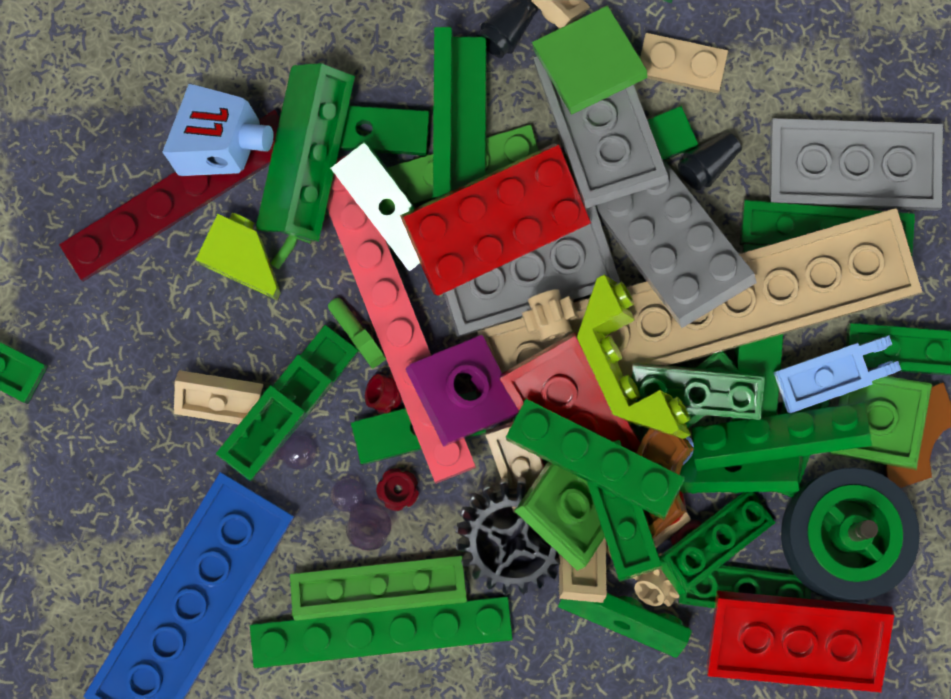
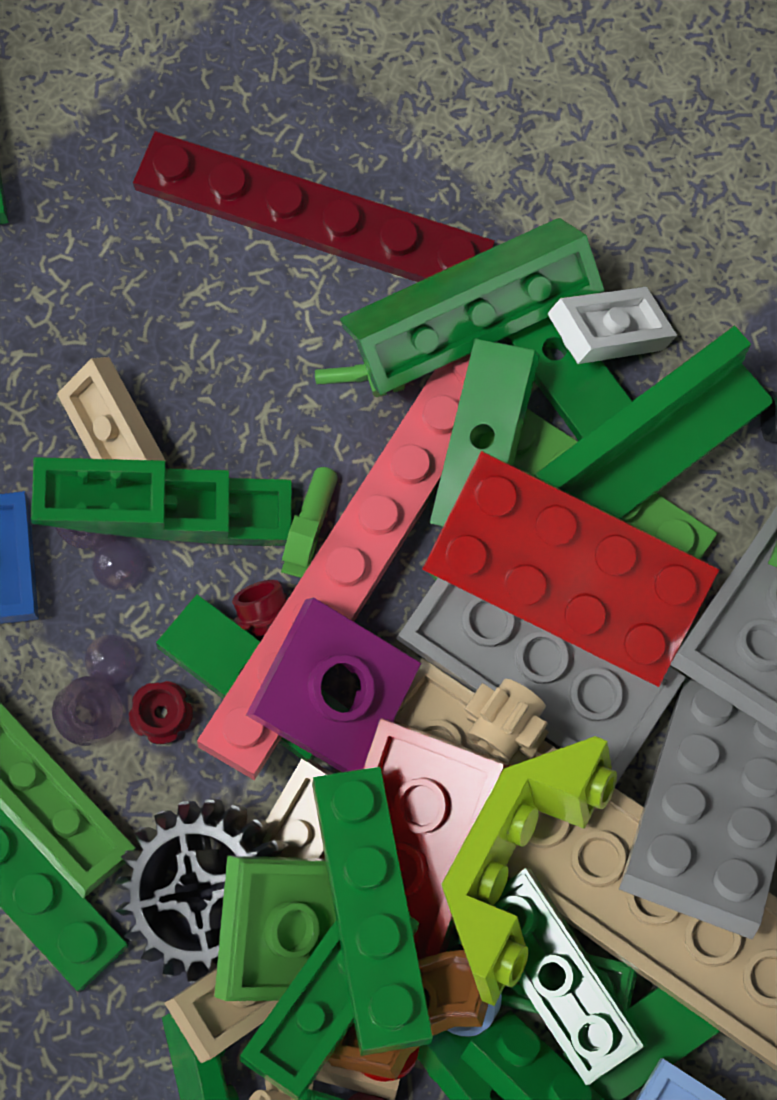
camera: 50 degrees right, 10 degrees down
(214, 133) = (409, 189): light blue torso -> none
(238, 254) = (296, 324): lime slope -> none
(376, 87) = (611, 324): none -> white plate

